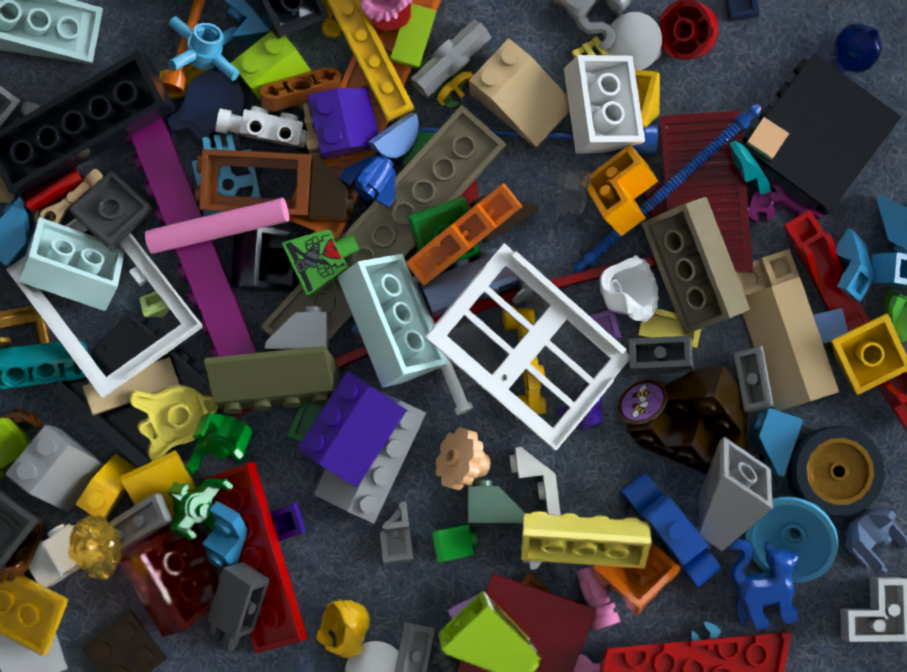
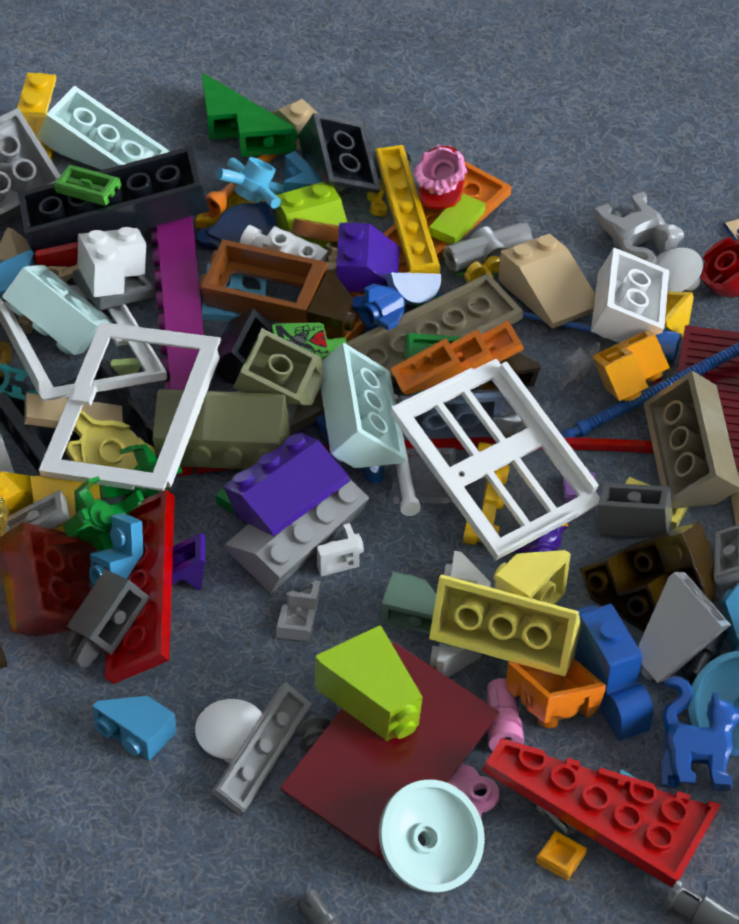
camera: 15 degrees right, 35 degrees down
(73, 128) = (84, 188): none -> bright green tile
(96, 194) = (109, 258): none -> white brick
(141, 391) = (181, 426): none -> white door
(217, 226) = (213, 298): bright pink piece -> none
(309, 314) = (281, 368): none -> olive slope
(349, 623) = (214, 669): yellow hair -> none
(412, 470) = (341, 554): none -> white bracket
(454, 542) = (356, 613): green slope -> none
(461, 459) = (395, 552): light nougat plant -> none
(589, 472) = (535, 575): none -> light yellow slope
(630, 289) = (616, 451): white hair -> none
(642, 401) = (604, 550): sticker -> none

